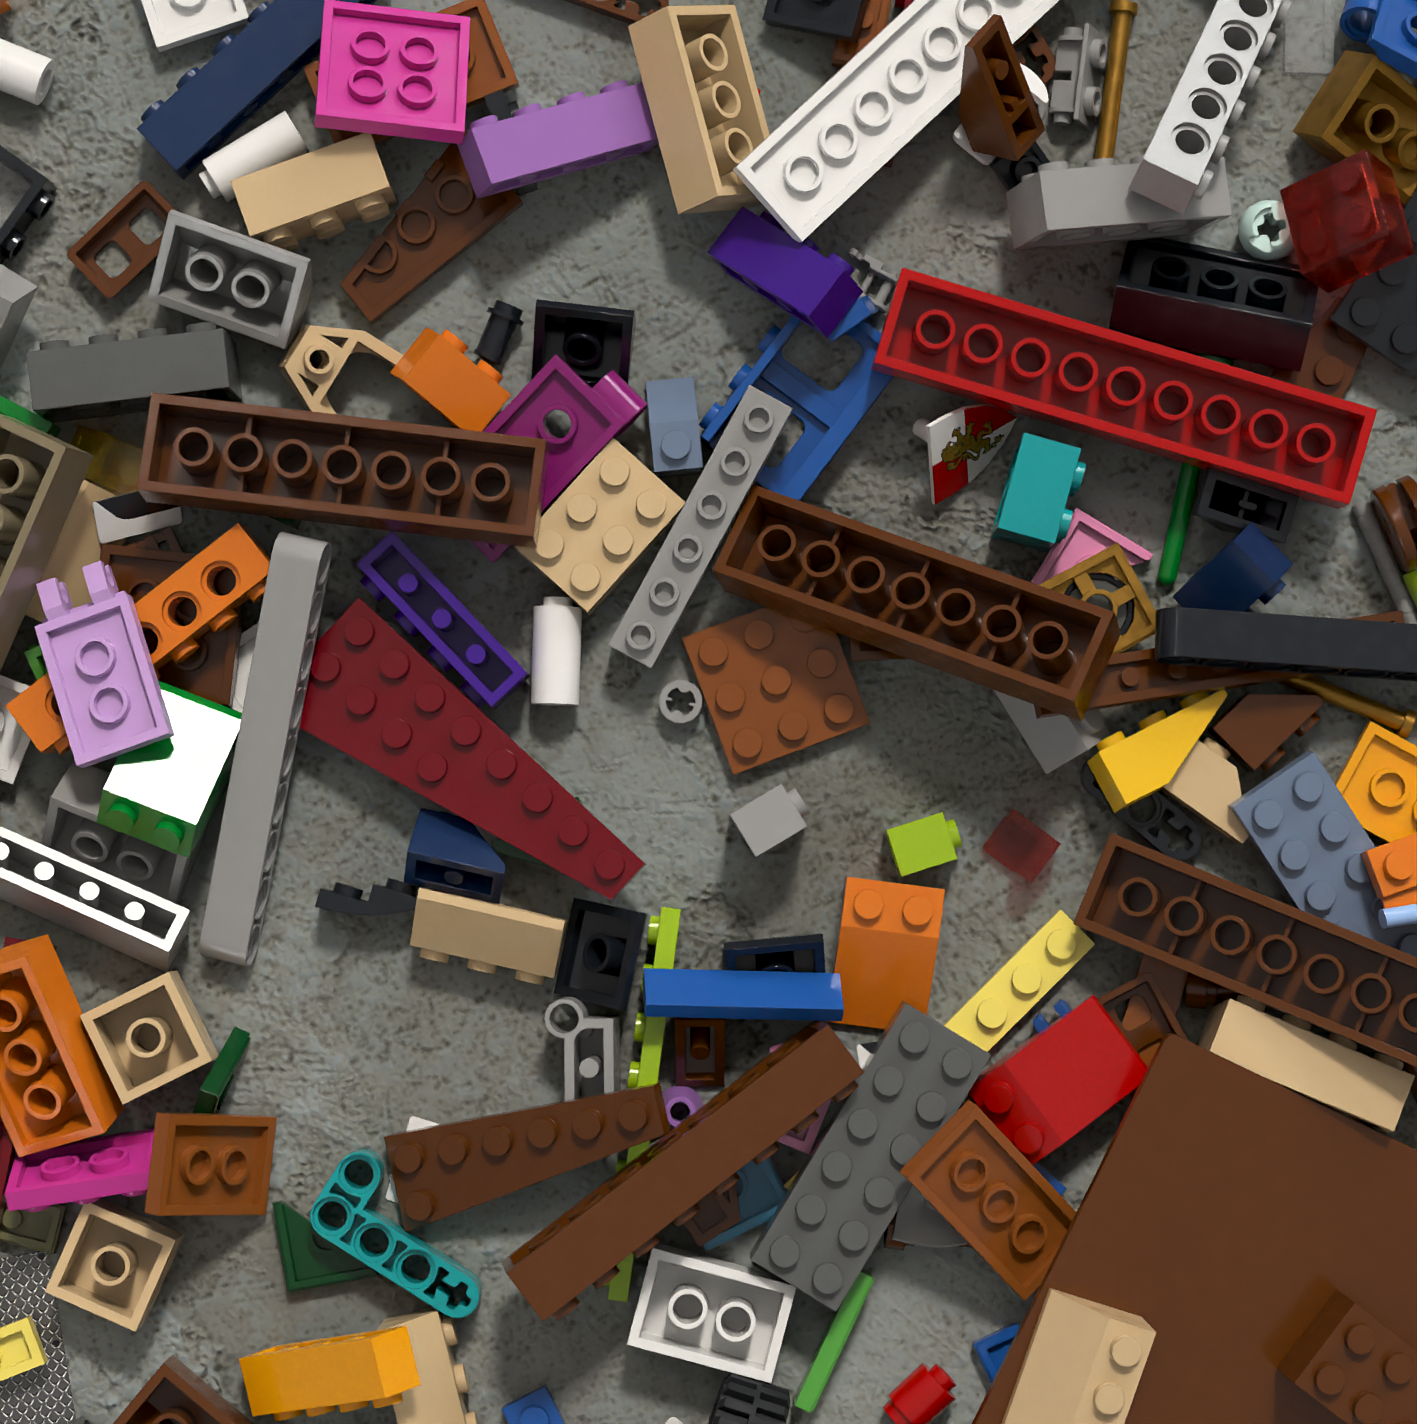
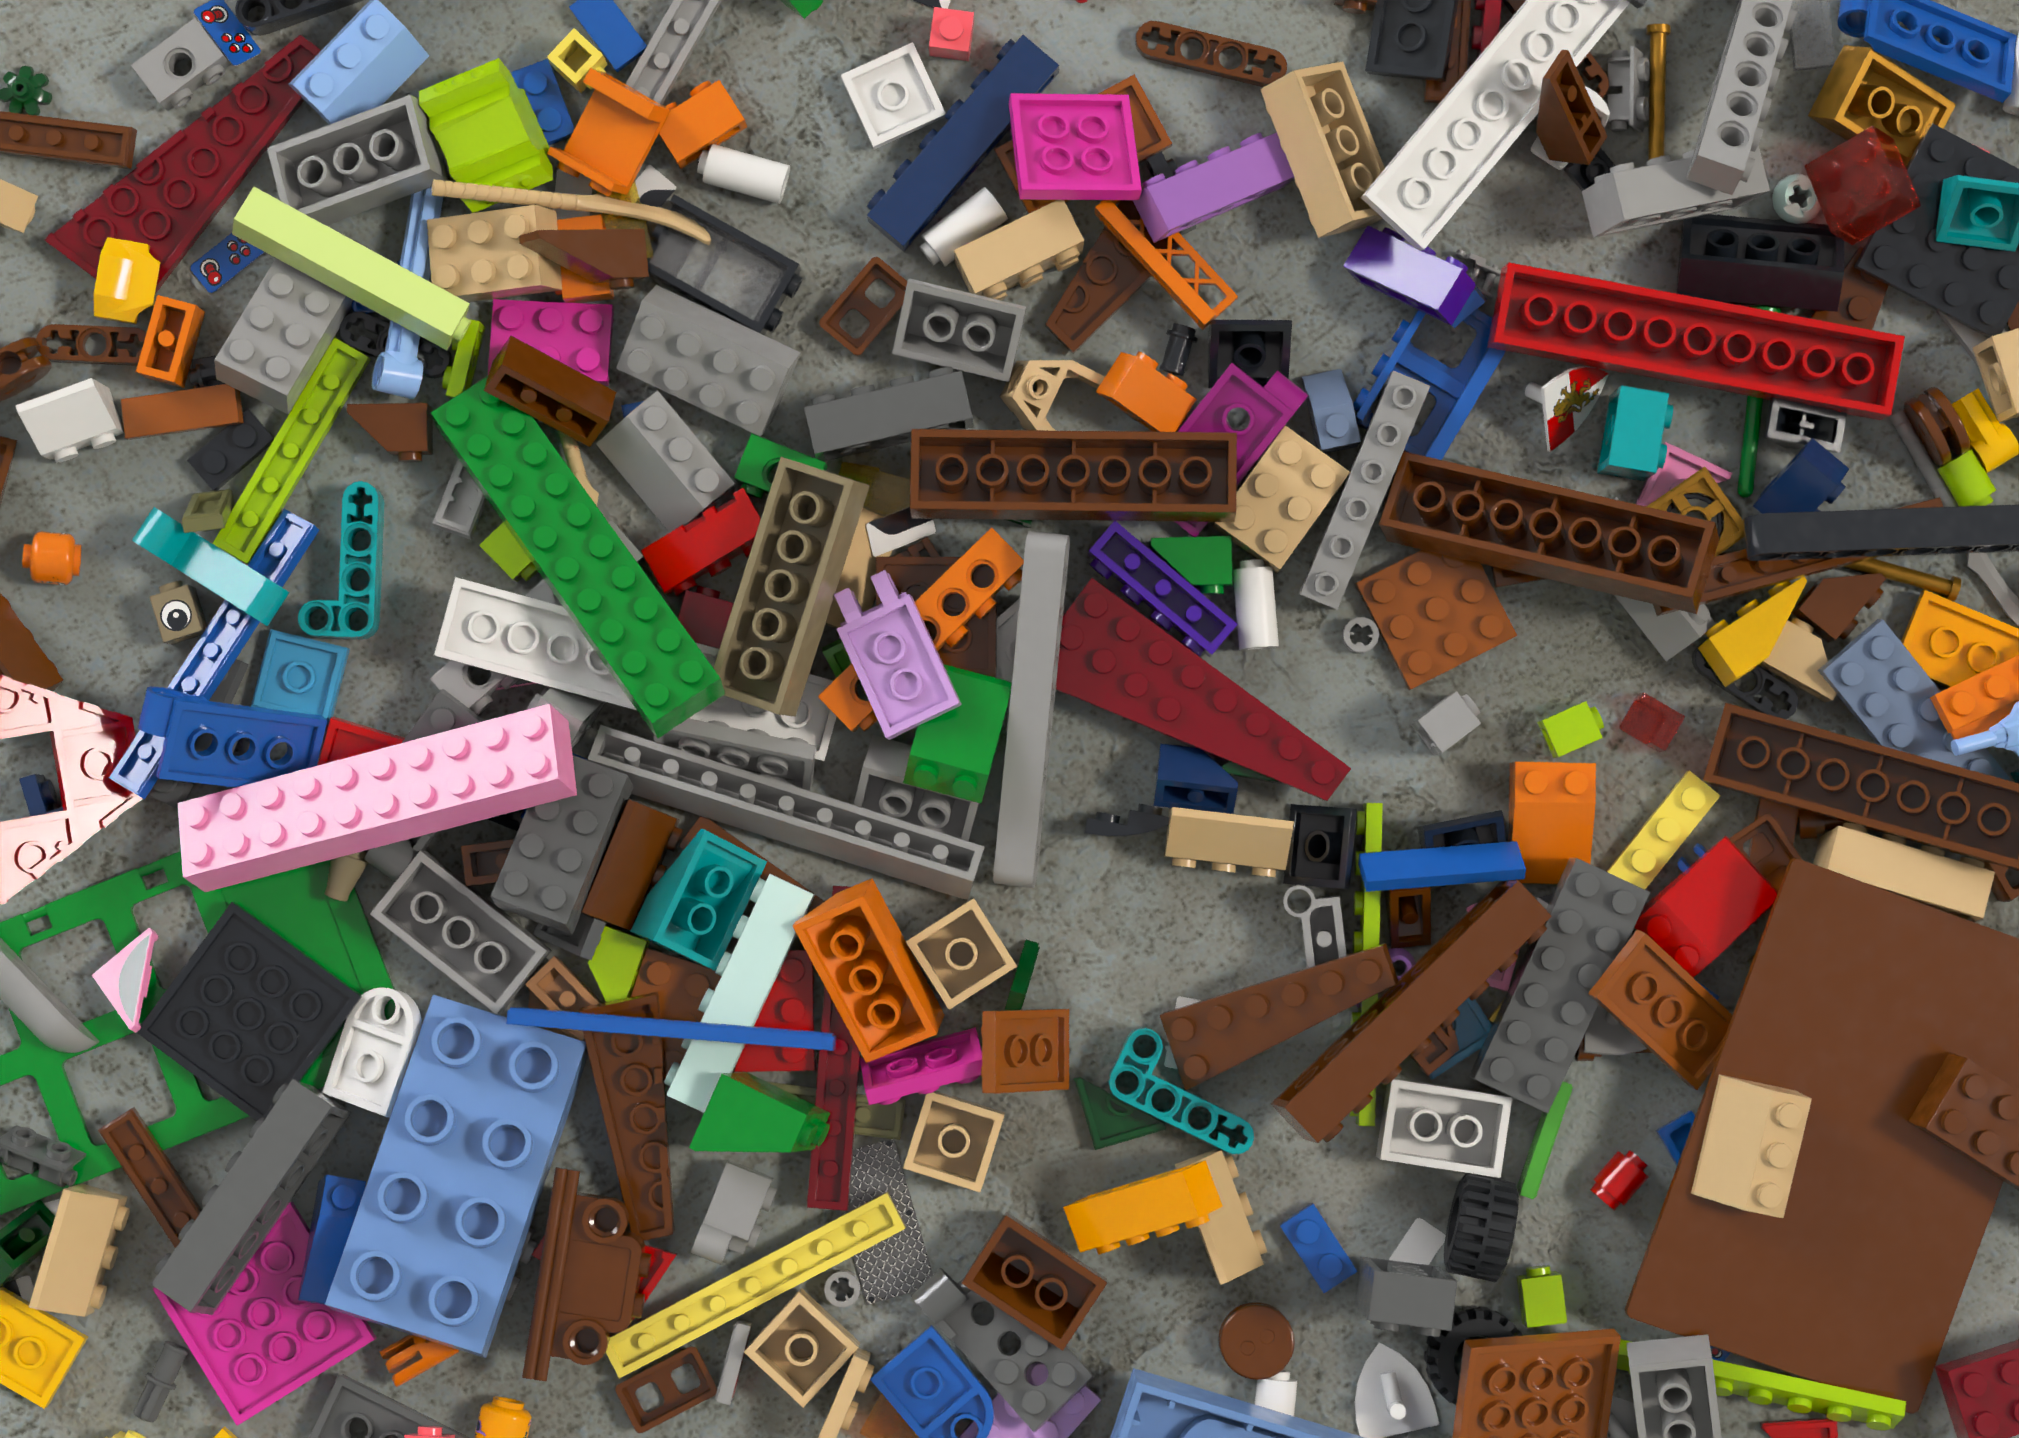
camera: 10 degrees left, 0 degrees up
(488, 236) = (1161, 268): none -> orange fence
(493, 590) = (1199, 560): none -> green slope

